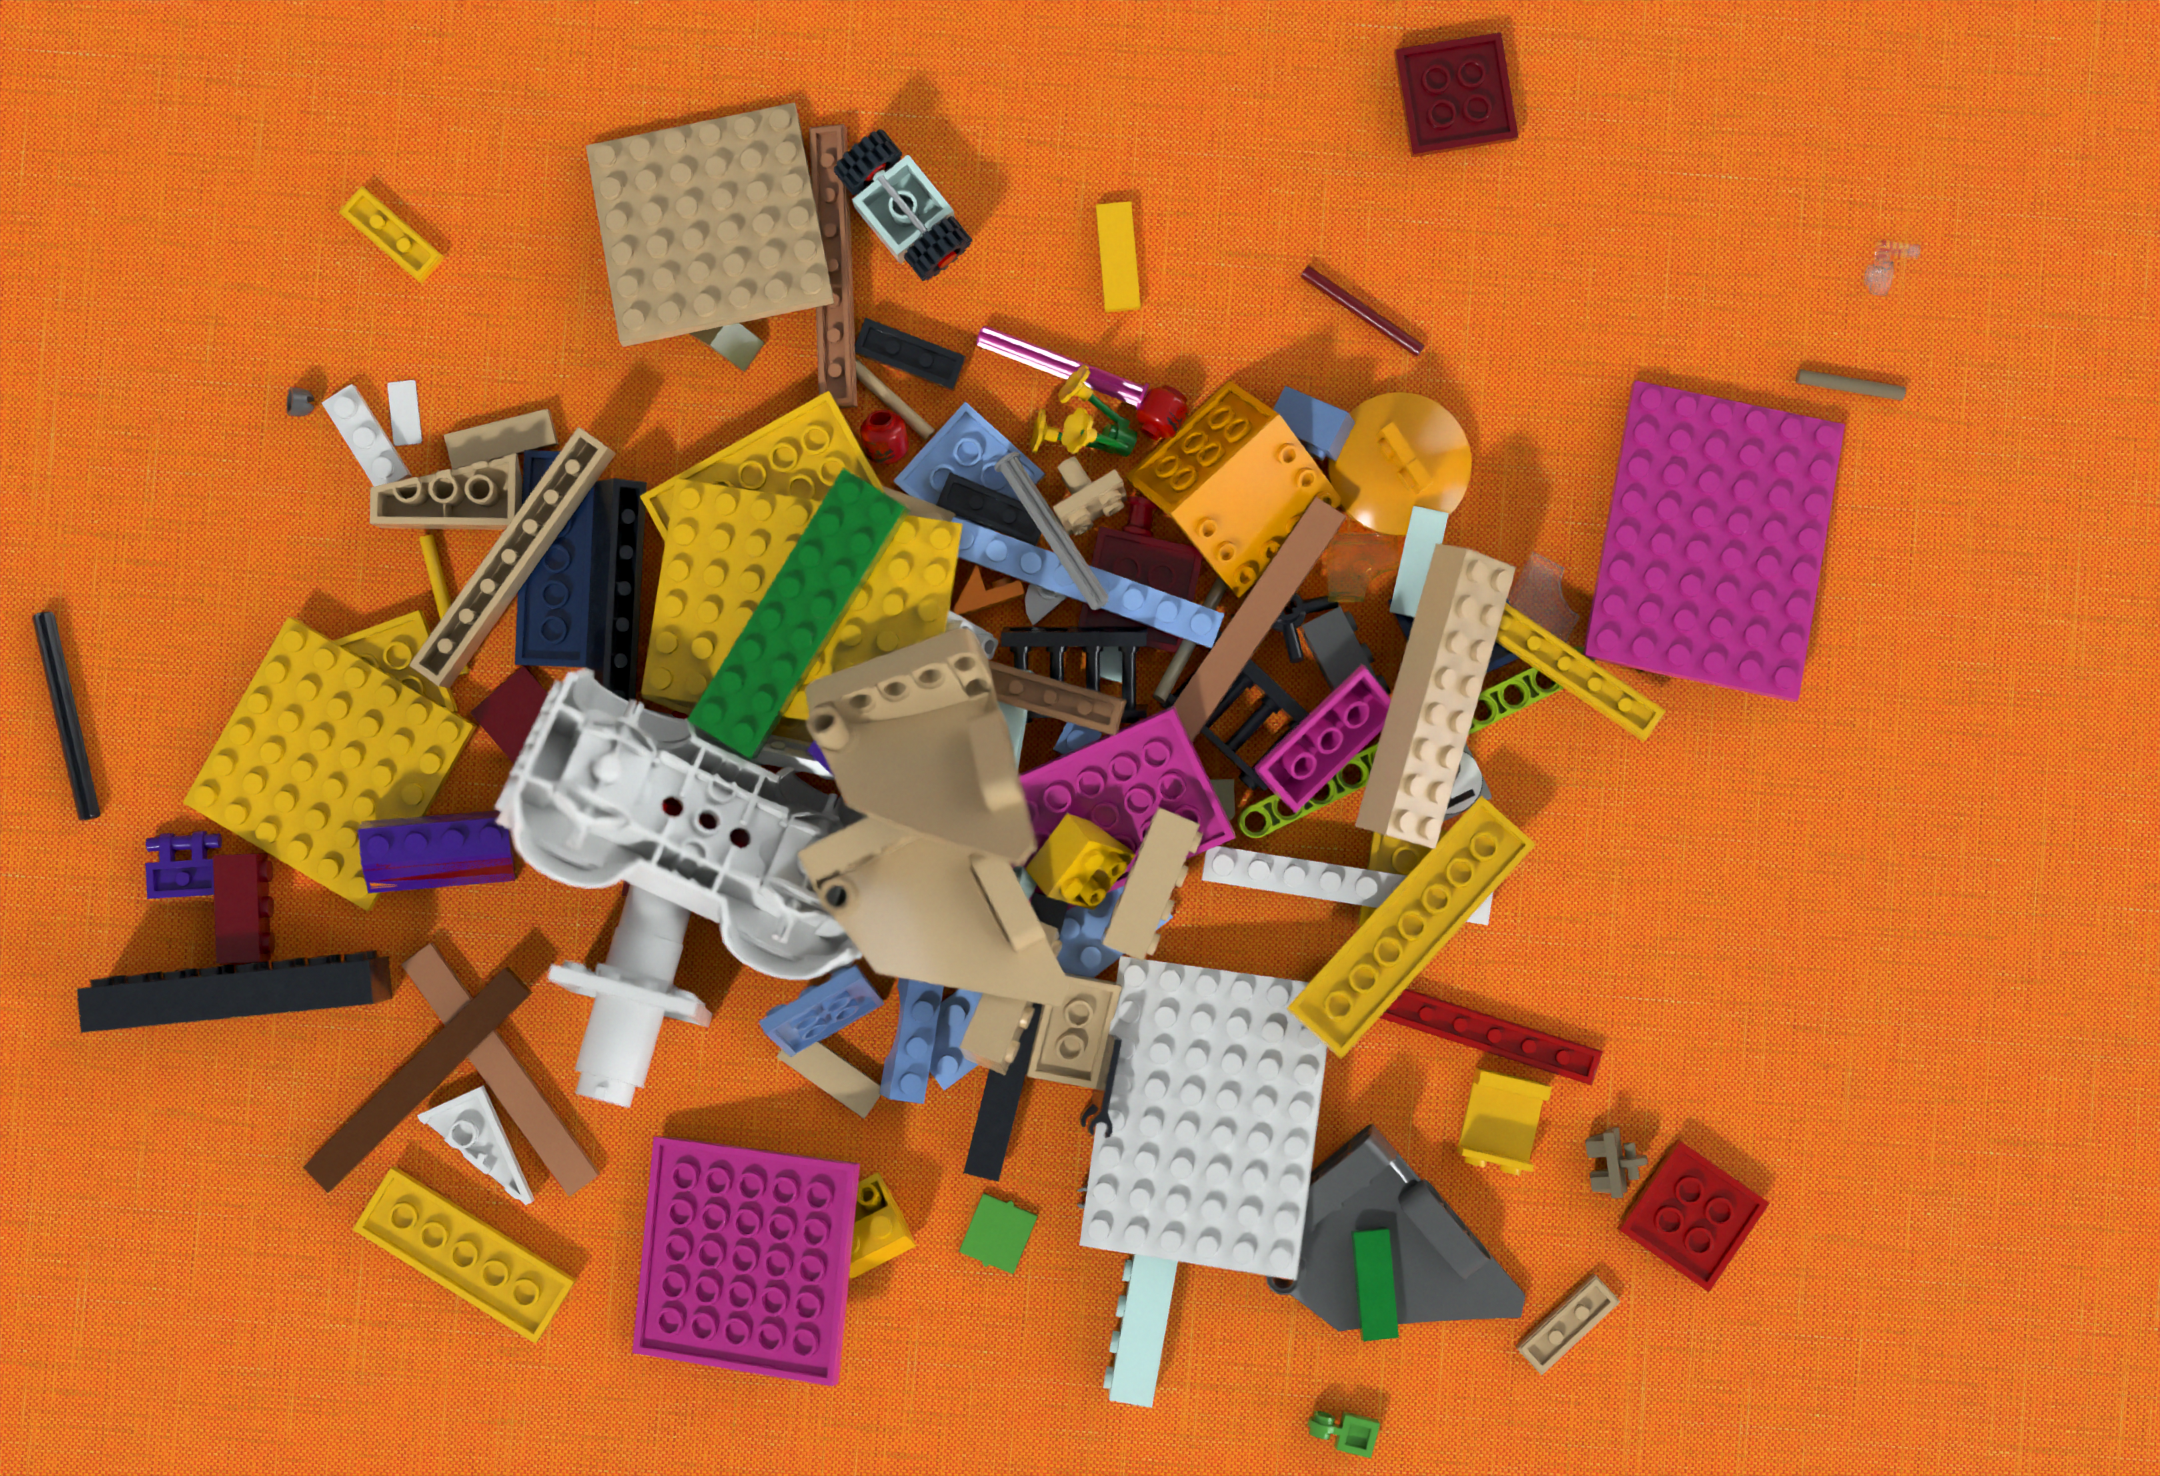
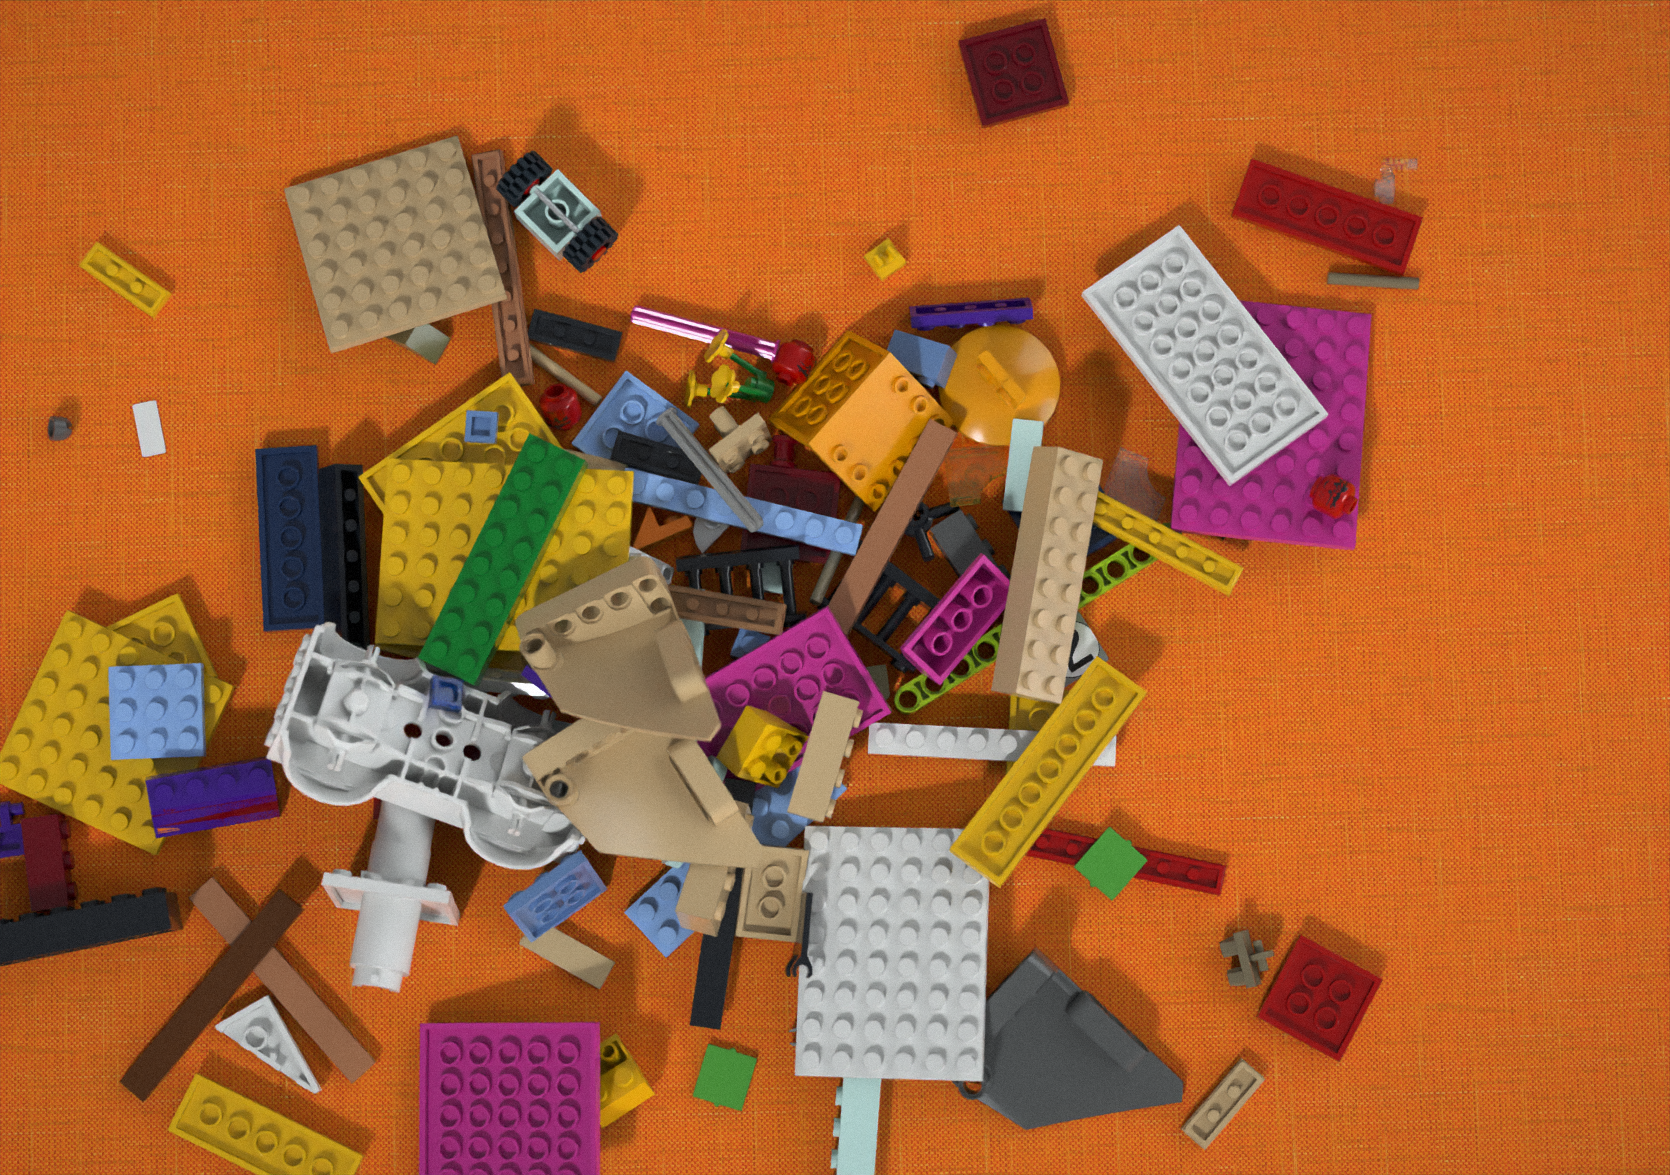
camera: 10 degrees left, 5 degrees down
(365, 437) = (119, 454): white plate -> none
(381, 746) = (157, 711): none -> light blue plate
(437, 579) = (197, 588): yellow bar -> none
(461, 498) = (206, 495): tan wedge -> none
(501, 438) = (233, 442): tan tile -> none
(512, 559) = (255, 539): tan brick -> none
(512, 712) = (265, 673): dark red flag -> none
(715, 766) = (445, 694): none -> clear blue tile
(789, 452) = (481, 427): none -> medium blue plate
(910, 1058) = (634, 929): medium blue arch -> none
(1118, 257) = (743, 236): yellow tile -> none
(1281, 301) = (885, 260): none -> yellow tile
(1362, 311) = (954, 261): dark red bar -> none
(1374, 1284) = (1052, 1085): green tile -> none
(1389, 376) = (980, 312): none -> dark purple plate
(1469, 1036) = (1110, 863): none -> bright green piece
(1501, 1120) = (1147, 933): yellow panel -> none
(1646, 453) = (1204, 355): none -> white plate
(1782, 637) = (1333, 496): none -> red head
(1806, 303) = (1326, 217): none -> red plate

